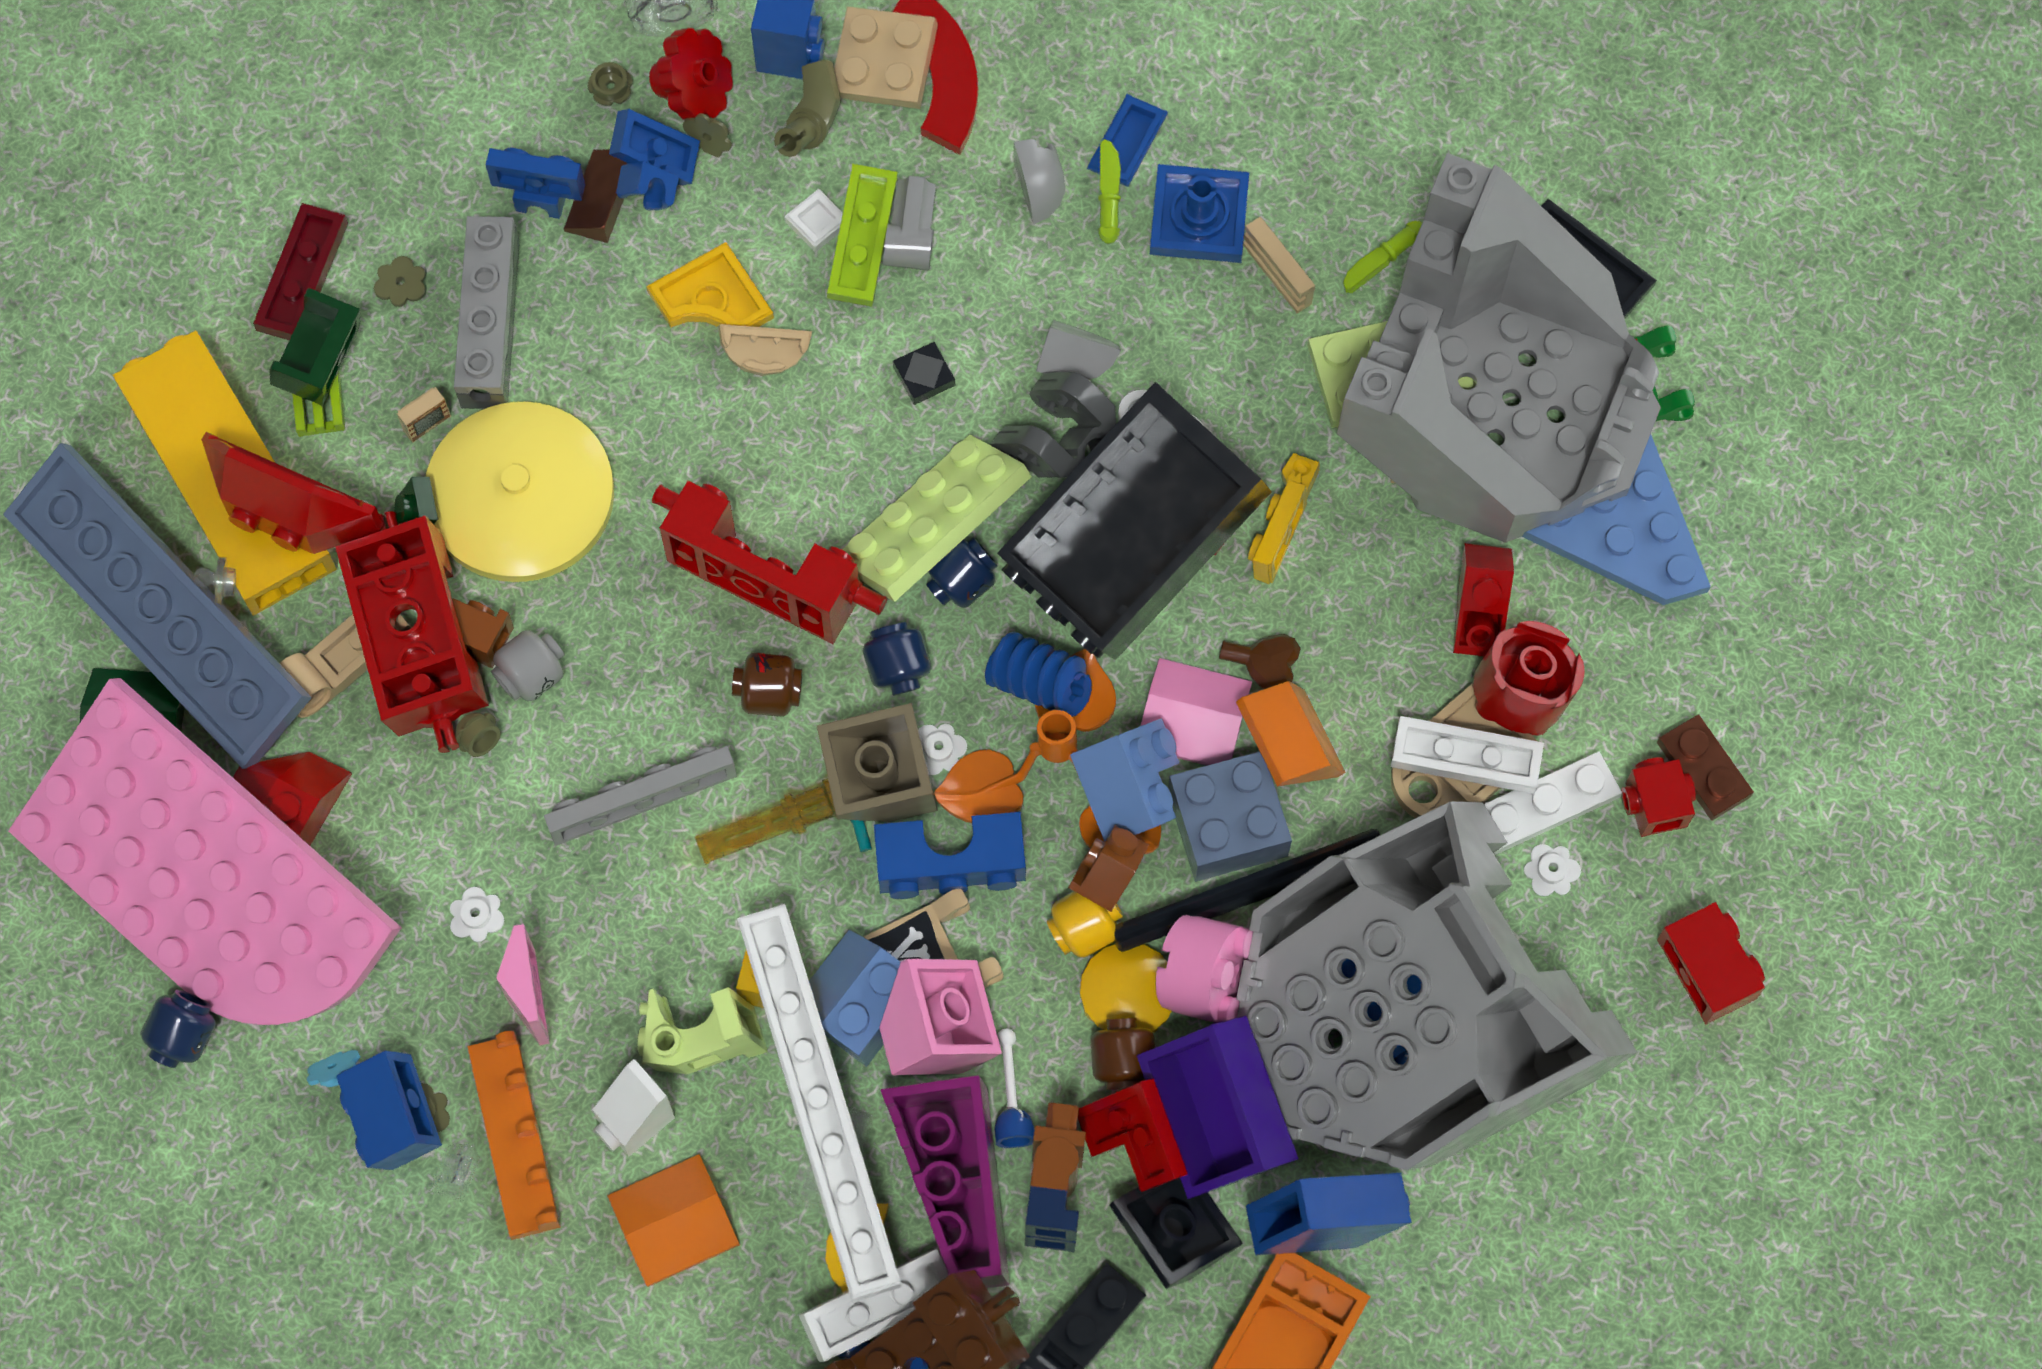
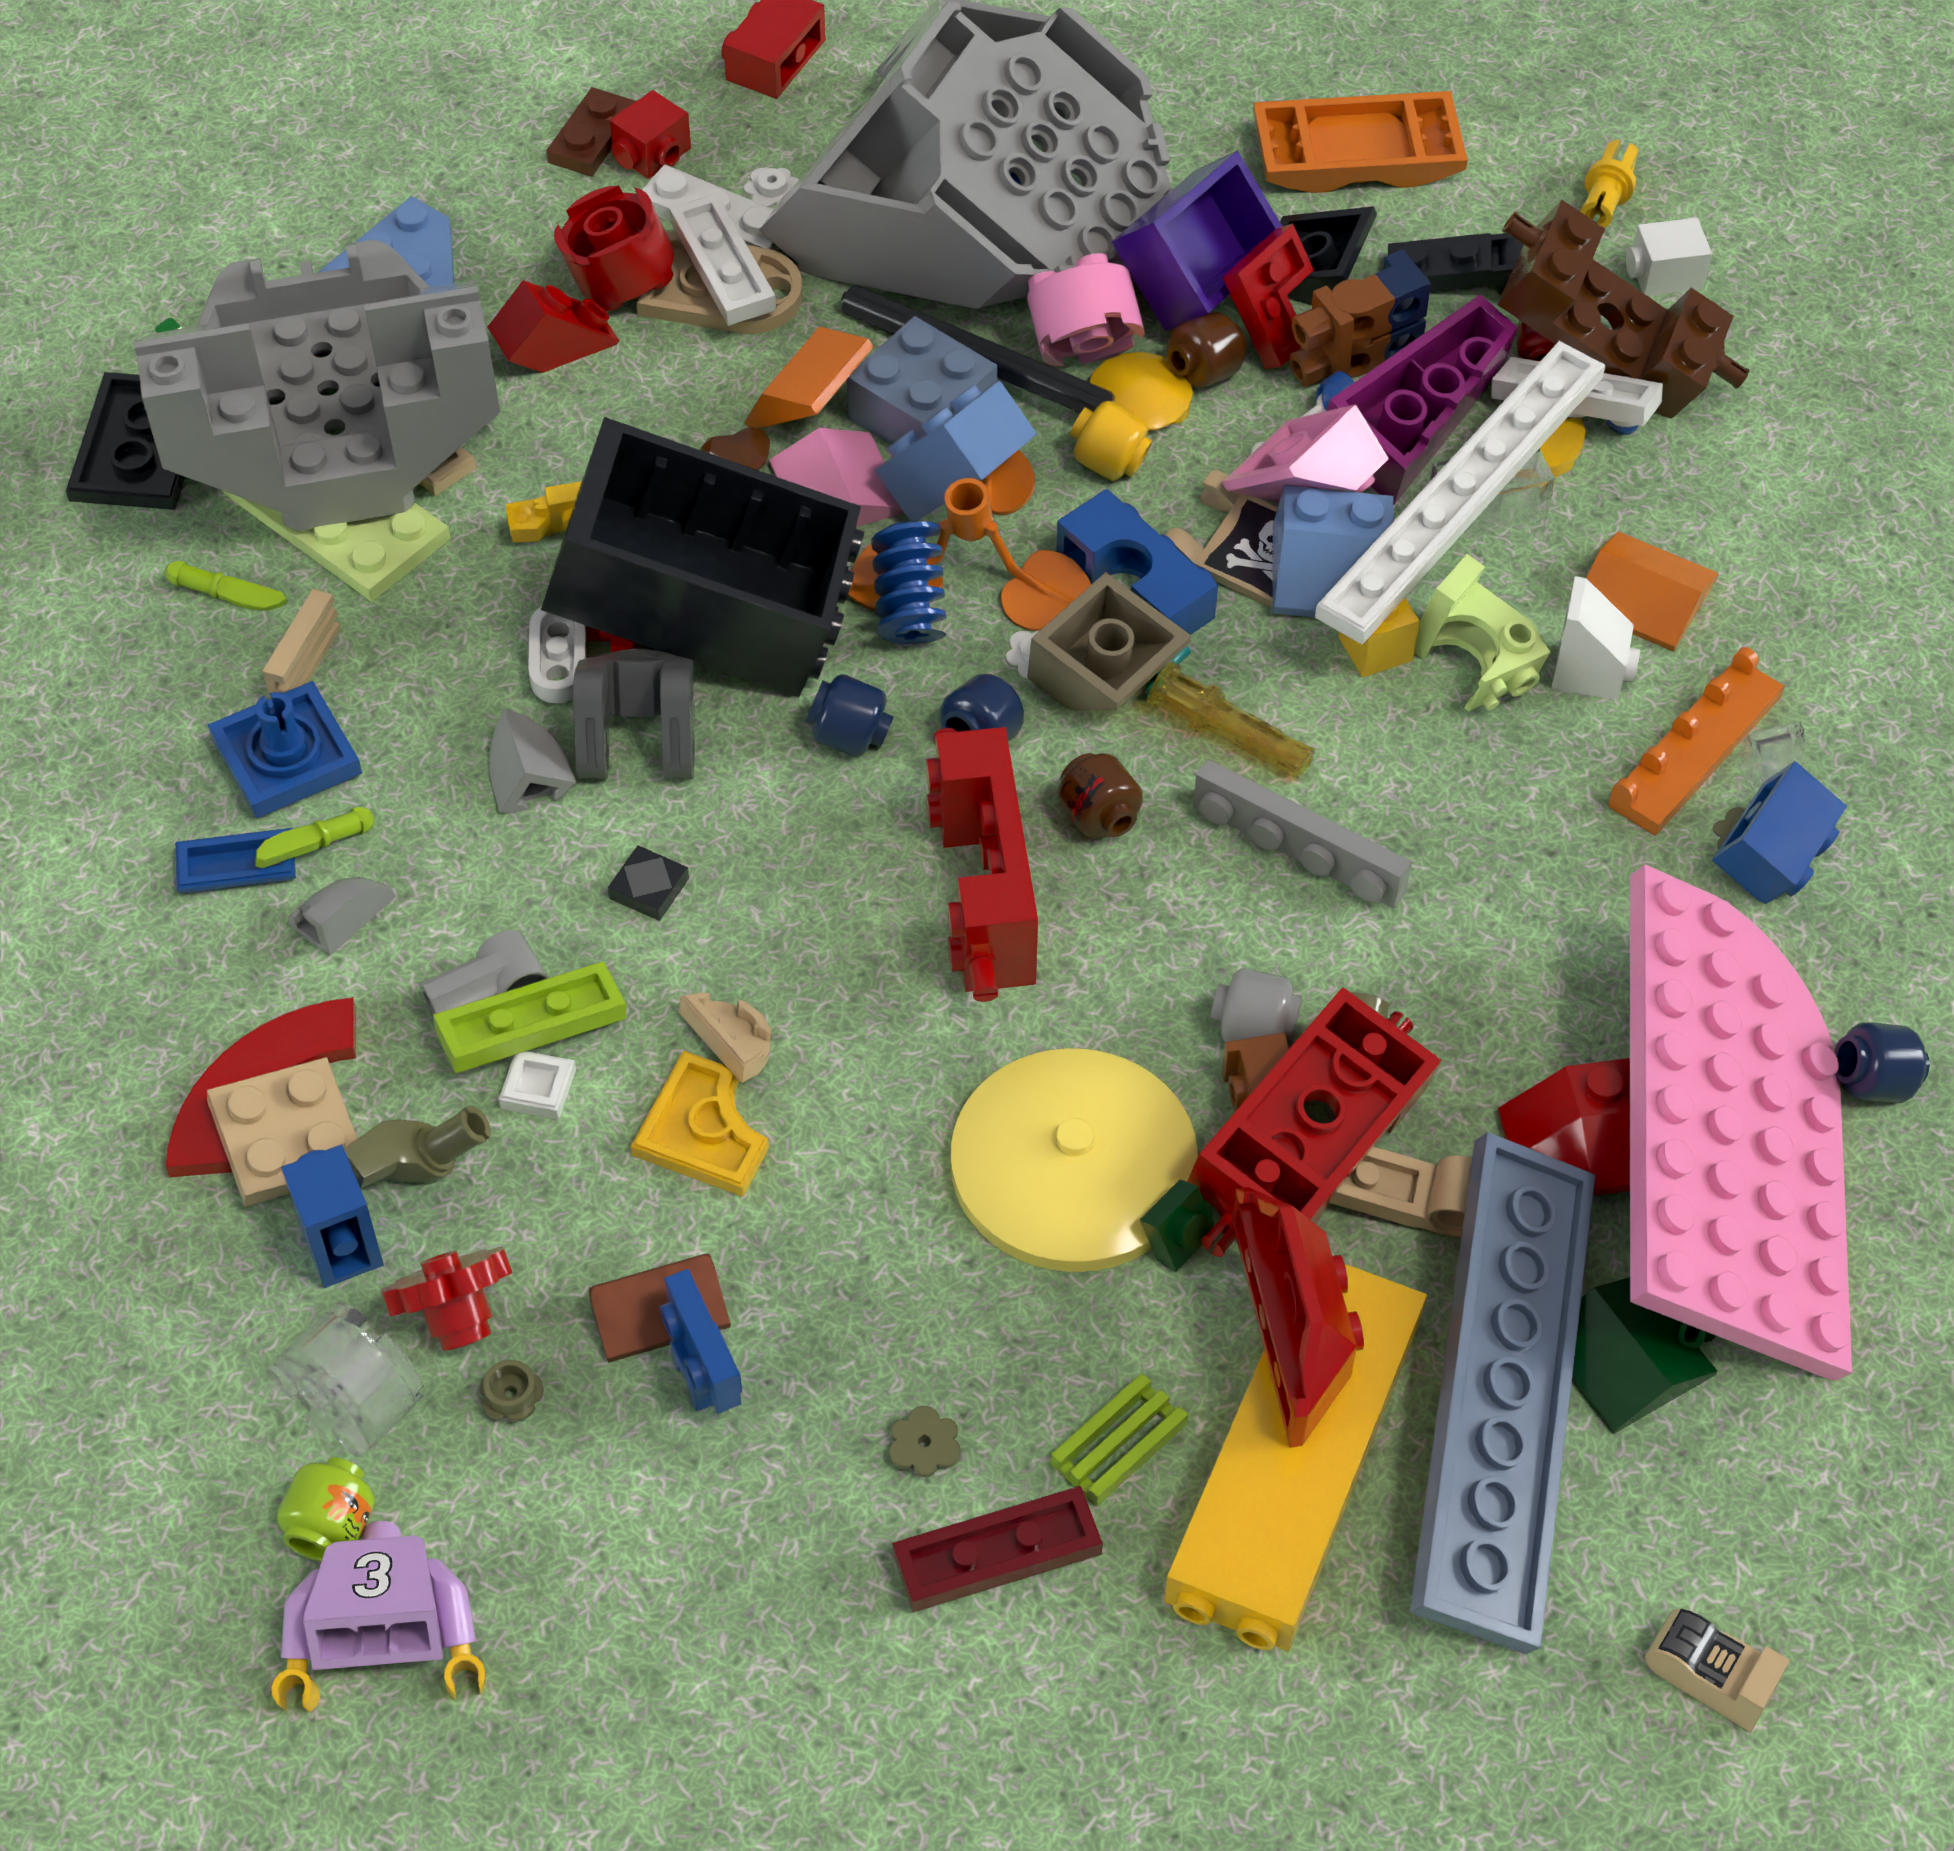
camera: 125 degrees left, 15 degrees down
(222, 581) = (1435, 1318): clear plate -> none
(316, 347) = (1086, 1434): dark green panel -> none
(327, 1069) = (1797, 904): medium azure plant -> none
(423, 414) = (1067, 1293): tan tile -> none
(486, 311) = (898, 1308): light grey piece -> none
(488, 920) = (1521, 921): white plant -> none
(521, 983) = (1565, 789): bright pink slope -> none
(655, 159) = (583, 1262): blue plate -> none
(710, 133) = (510, 1235): olive plant -> none
(934, 516) = (812, 761): yellowish green plate -> none
(1109, 867) = (1058, 411): dark orange brick -> none
(1328, 1213) = (1220, 112): blue brick -> none

